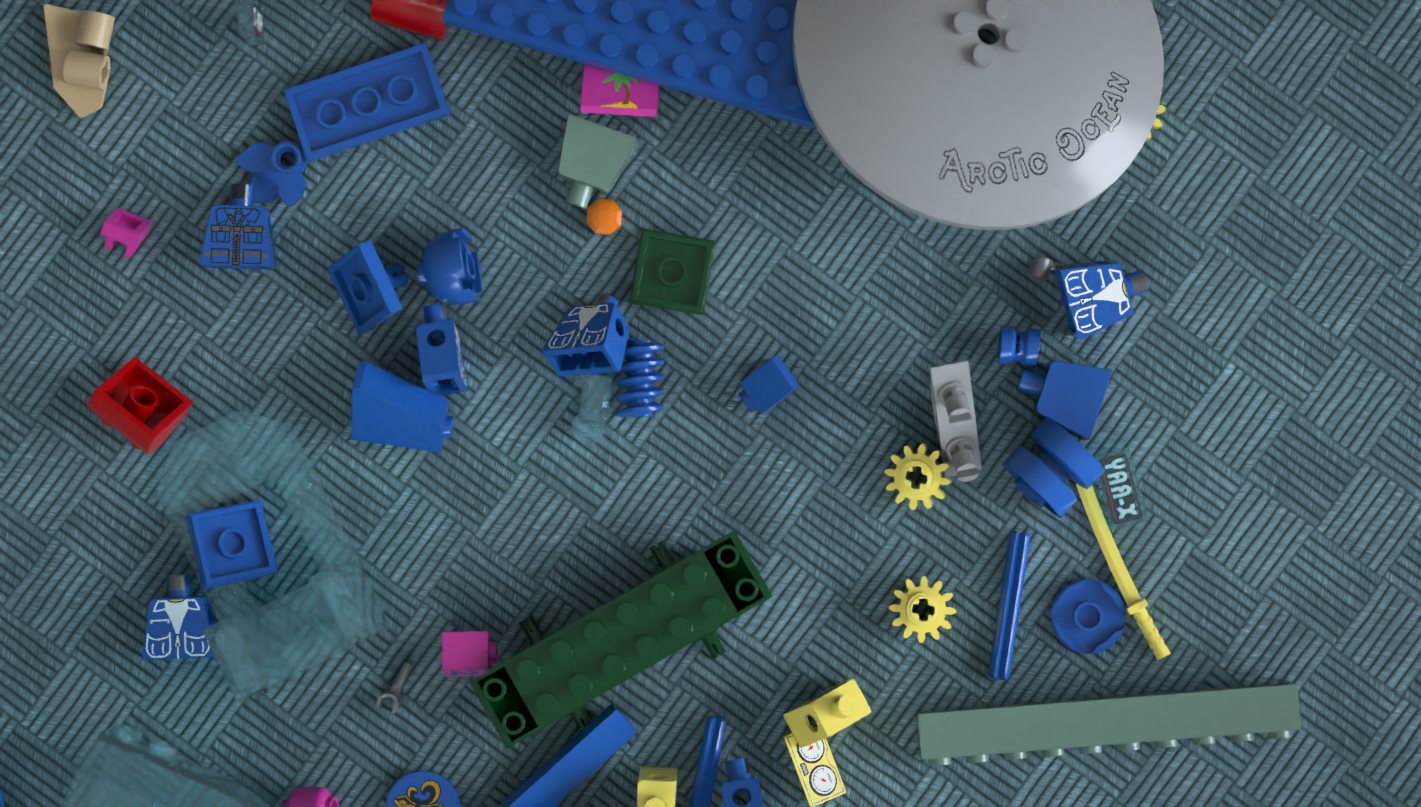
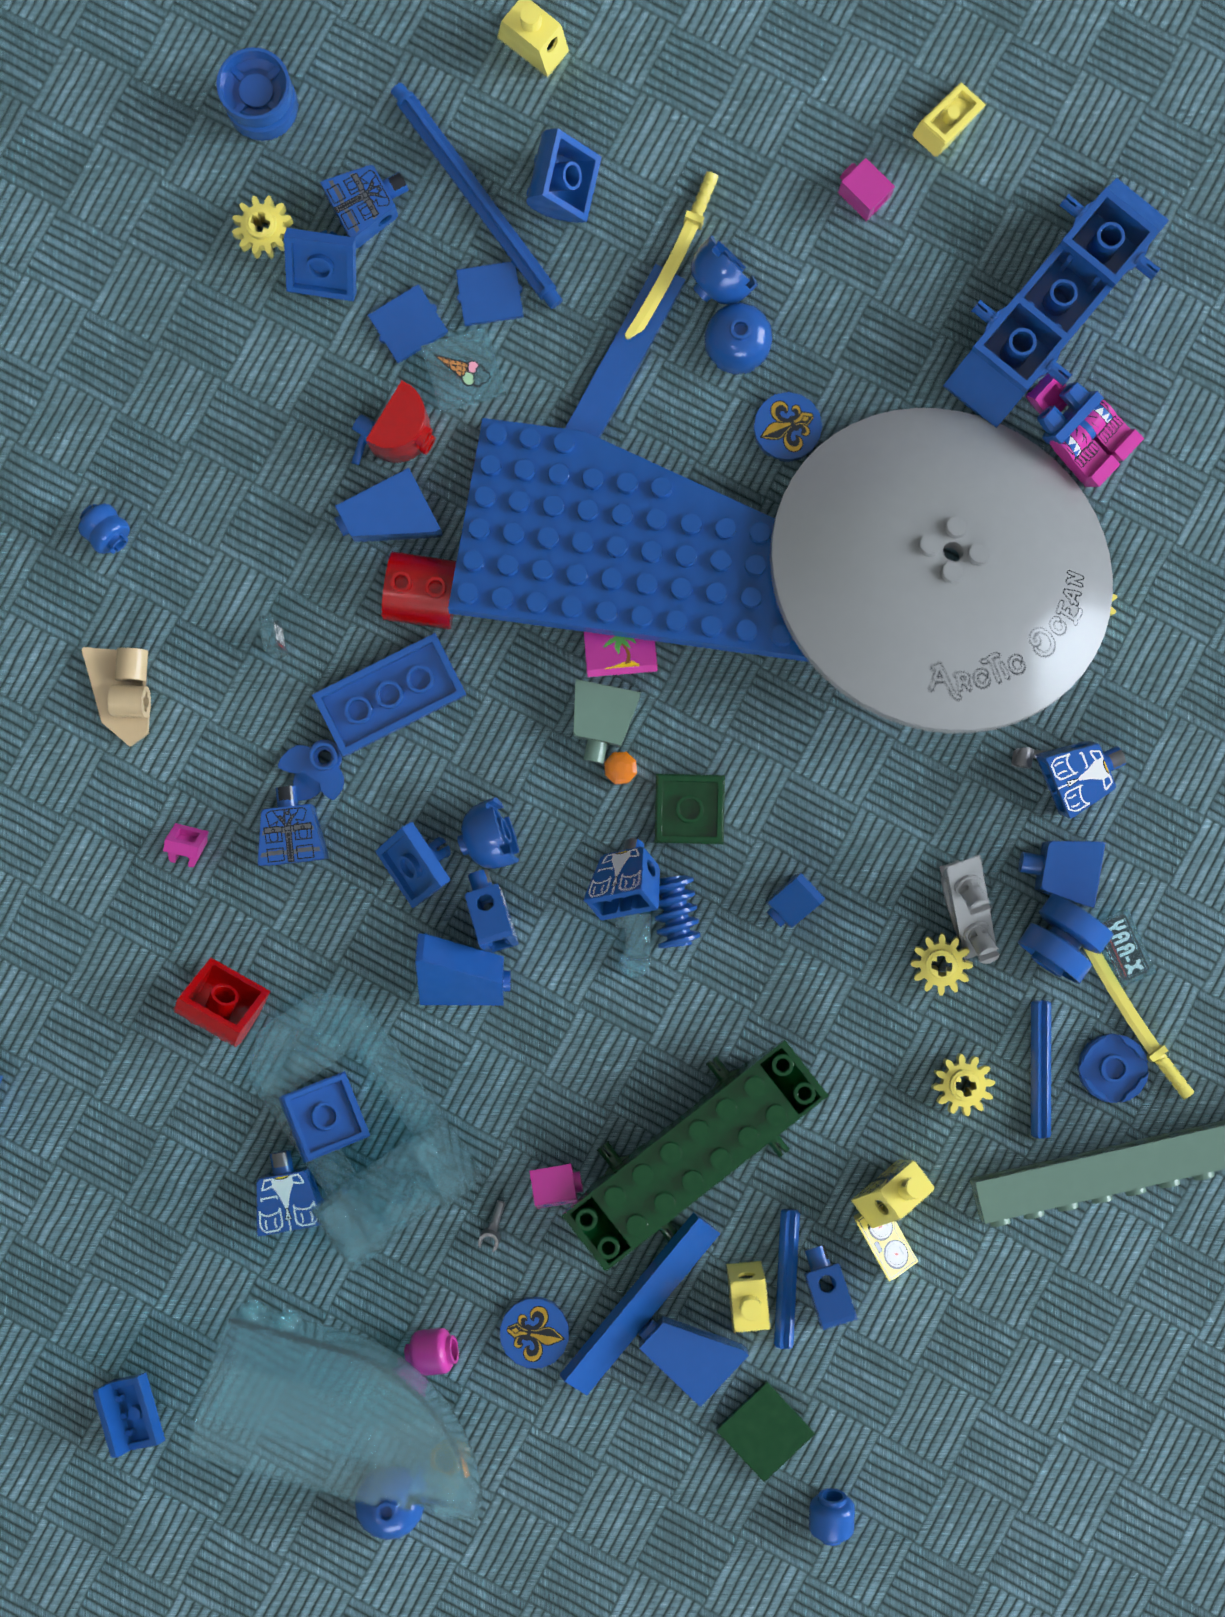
camera: 15 degrees left, 0 degrees up
(1026, 348) = (1015, 832): blue wheel -> none

